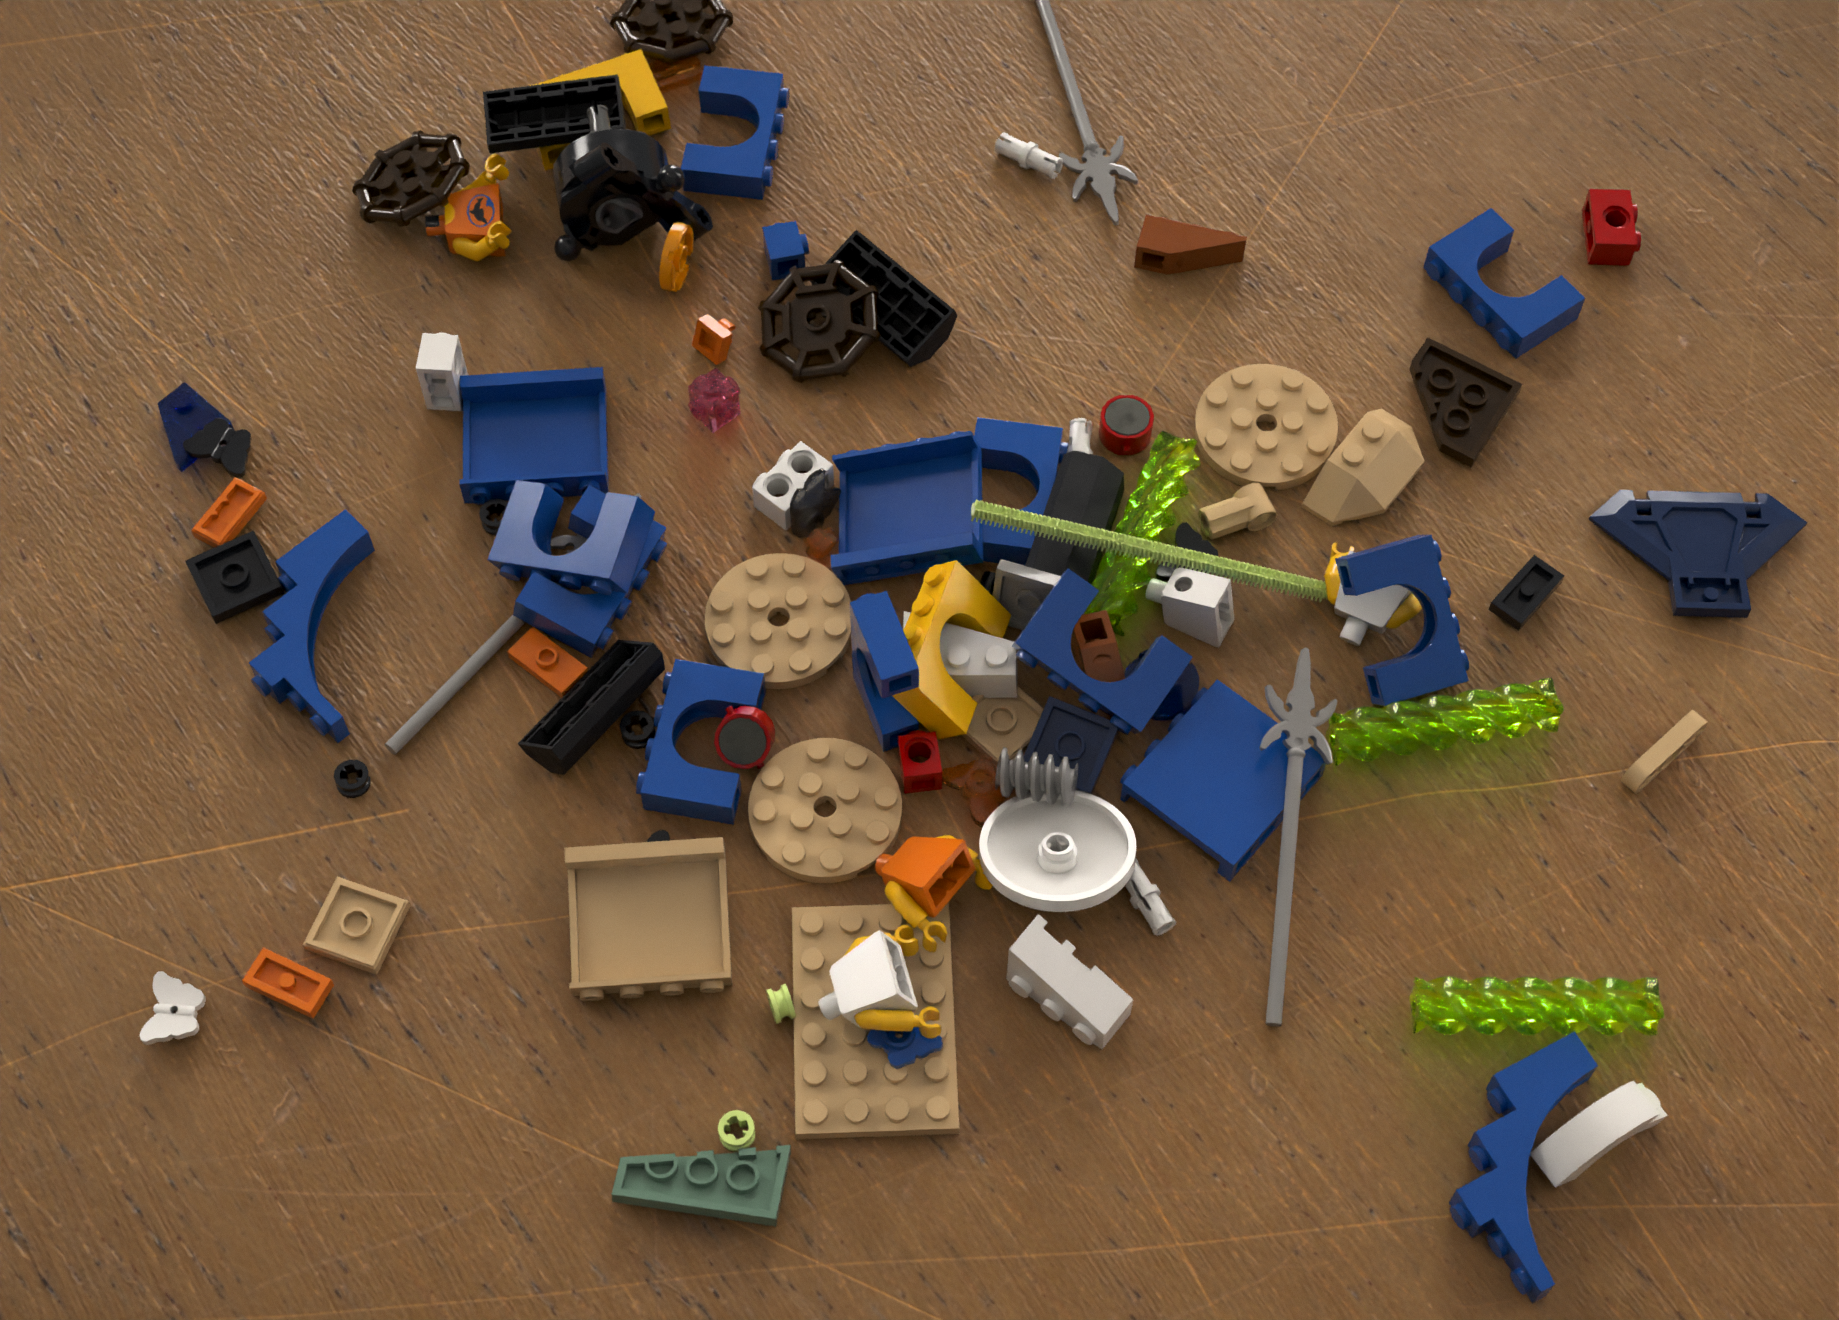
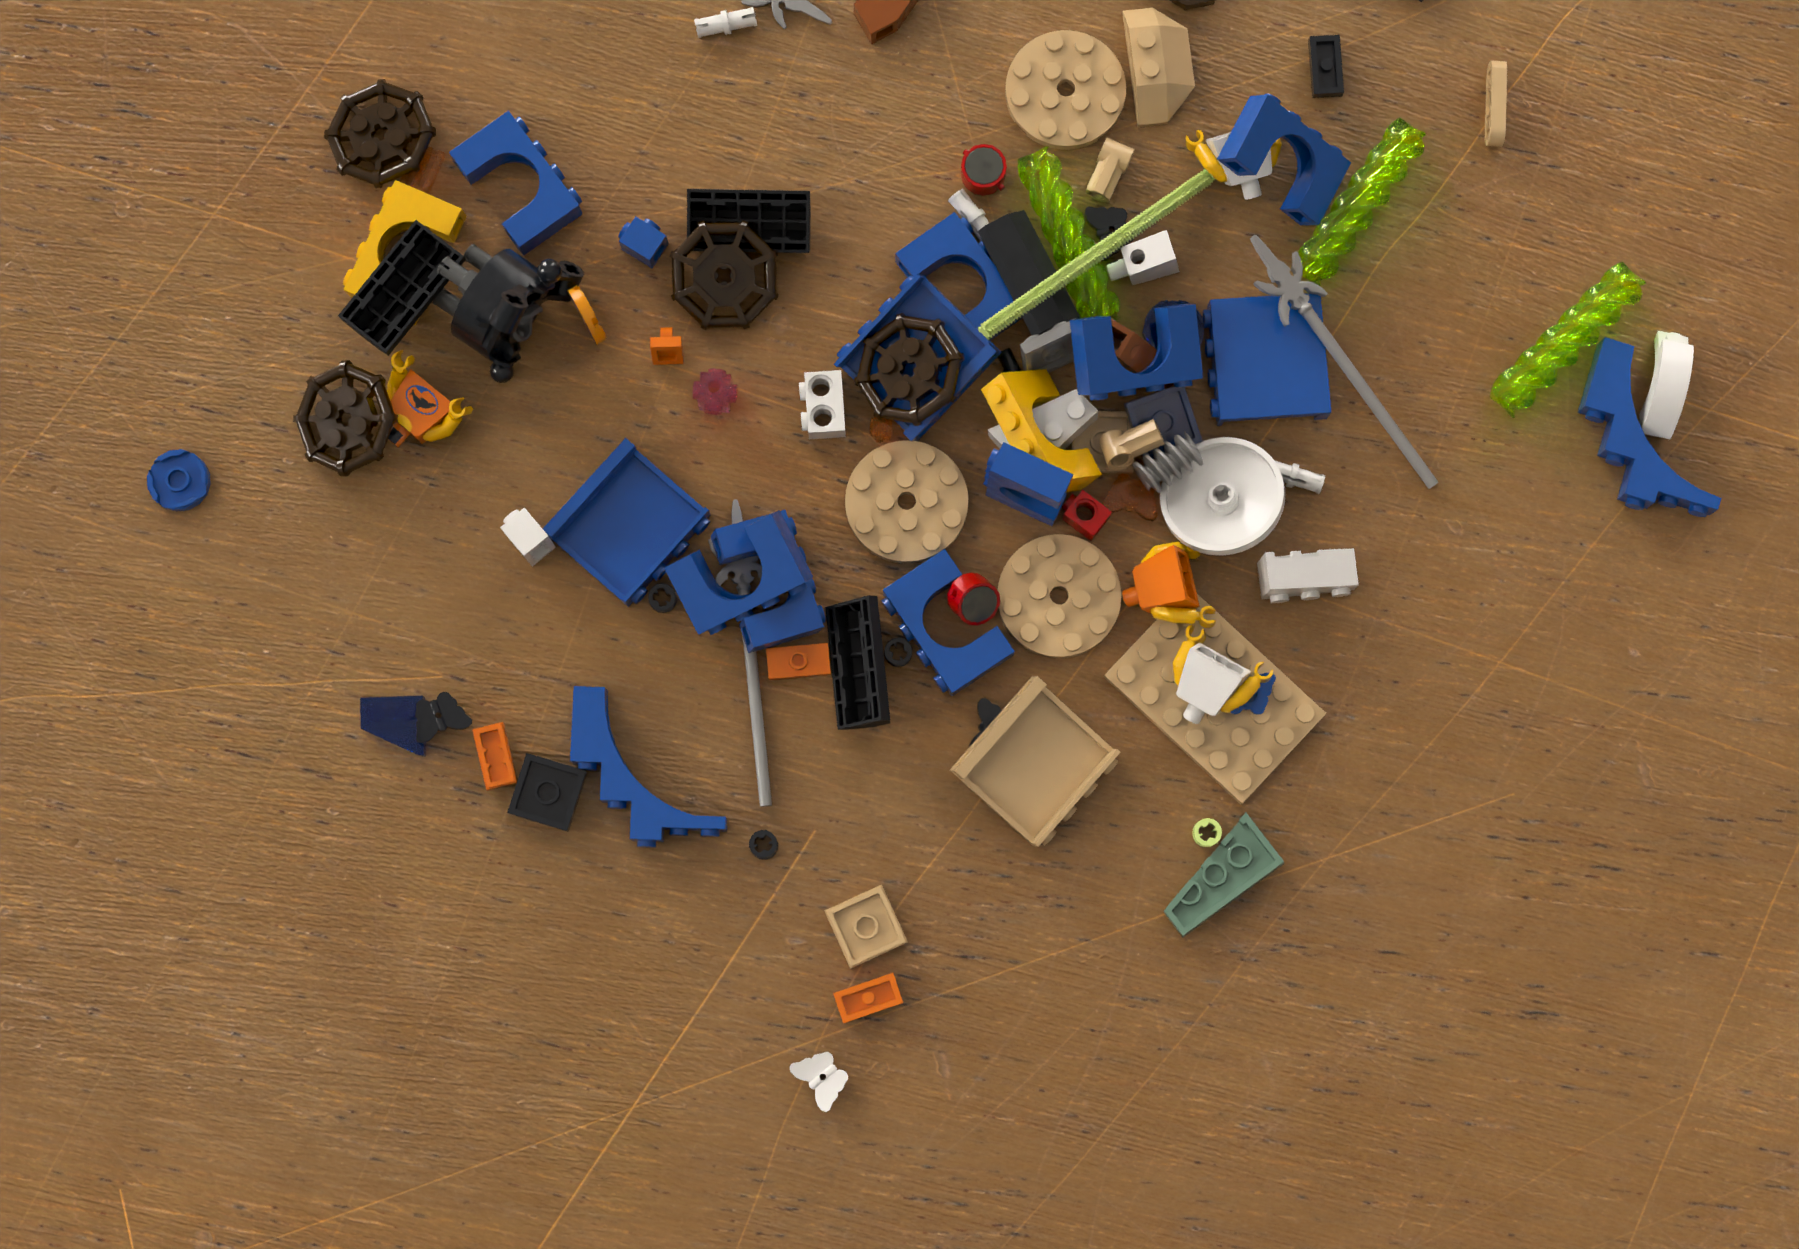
camera: 45 degrees left, 20 degrees up
(247, 127) = (178, 480): none -> blue tile
(781, 1003) = (1157, 737): yellowish green bush -> none
(812, 504) = (857, 417): clear smoke plate -> none
(880, 529) = (893, 363): none -> dark brown plate
(1011, 728) = (1122, 447): none -> tan piece

